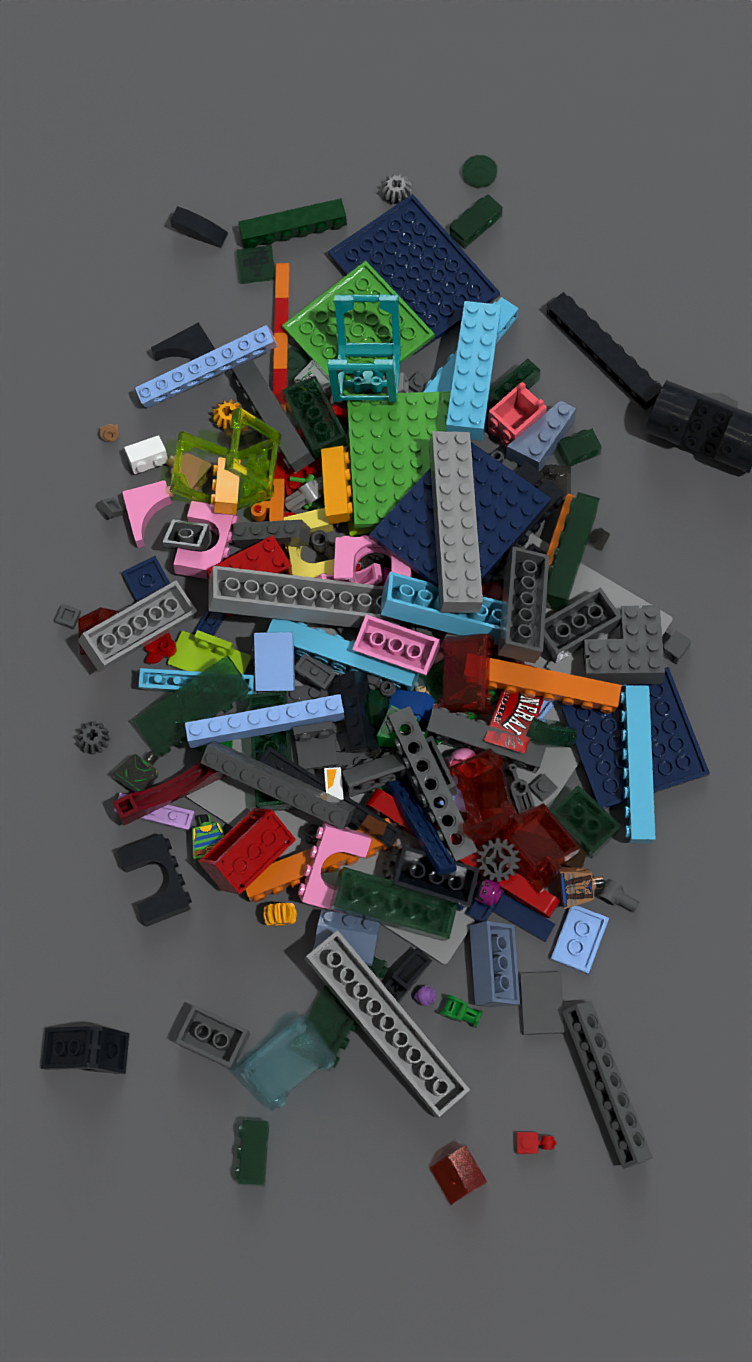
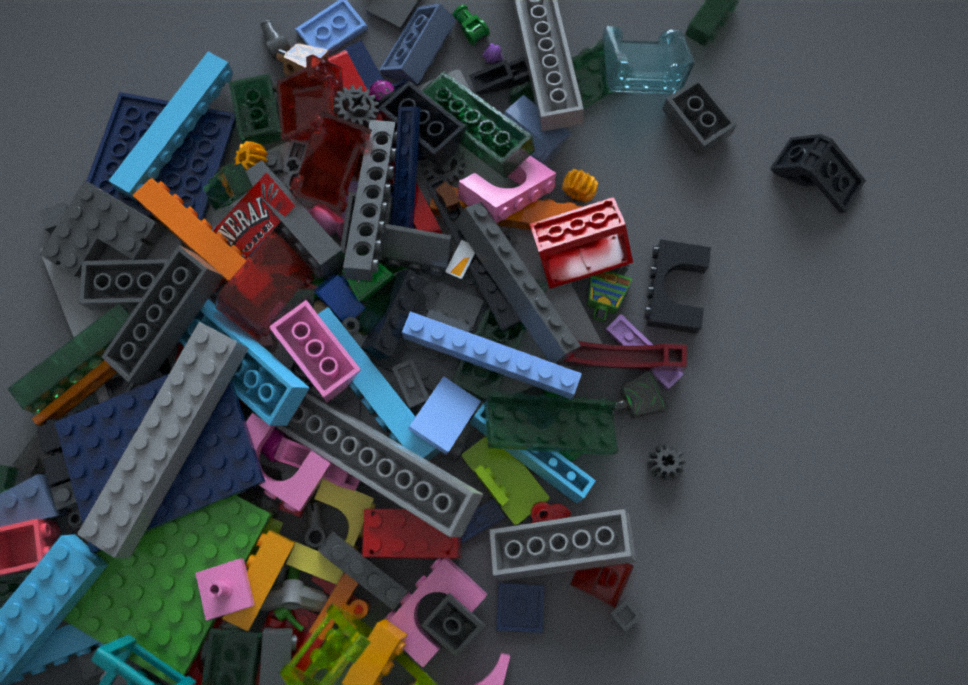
camera: 155 degrees left, 5 degrees up
(352, 462) = (225, 589): none -> bright pink tile
(512, 461) = (63, 496): none -> dark grey plate
(557, 774) = (250, 154): none -> light orange gear

